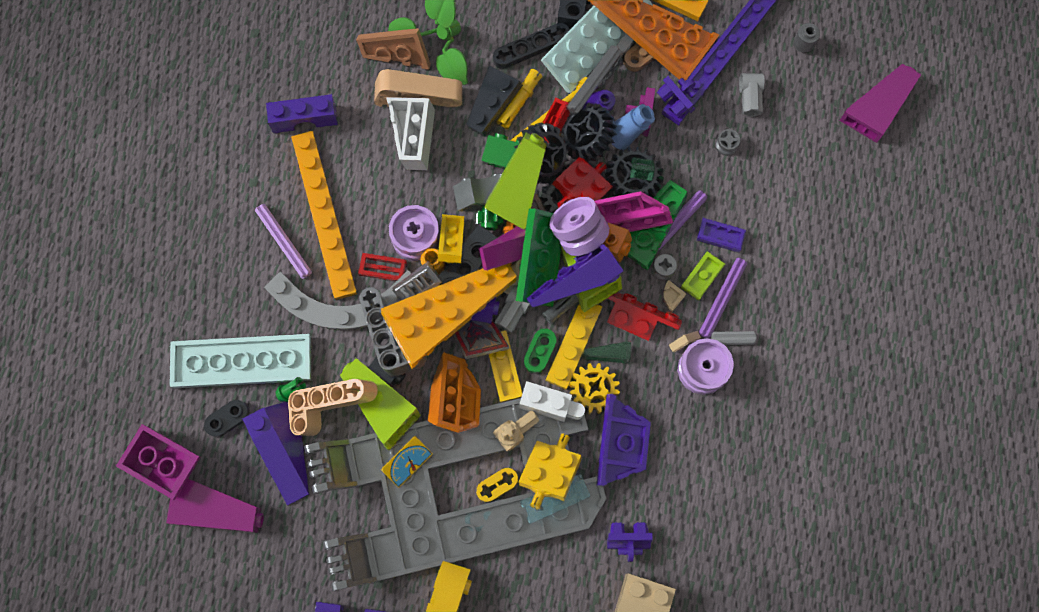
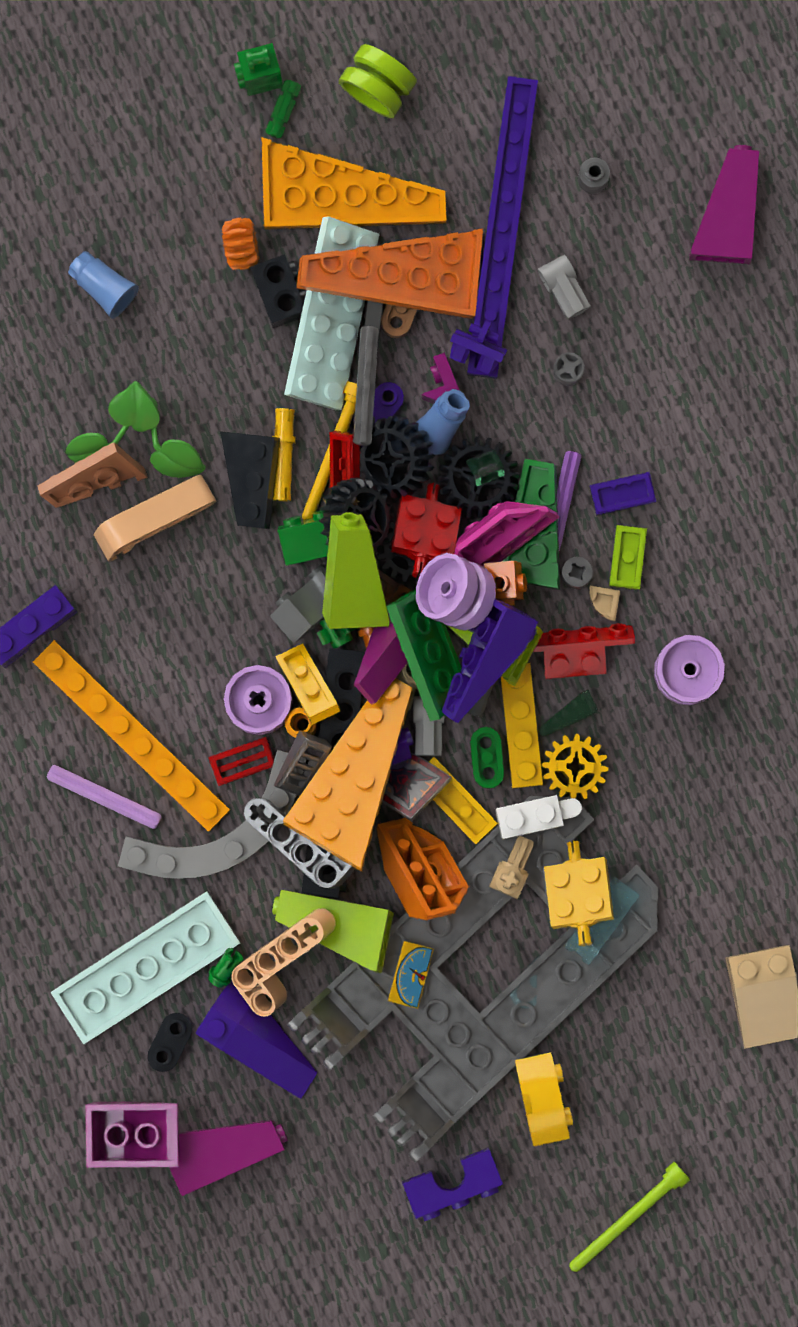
camera: 25 degrees left, 10 degrees up
(413, 130) = (179, 573): white wedge -> none
(493, 480) = (532, 944): yellow beam -> none
(529, 43) = (253, 372): black beam -> none
(622, 443) = (642, 812): dark purple wing -> none
(629, 543) = (712, 922): dark purple hips -> none
(684, 340) = (649, 650): tan tile -> none
(722, 298) = (665, 571): medium lavender axle -> none
(735, 337) = (703, 613): light grey axle -> none

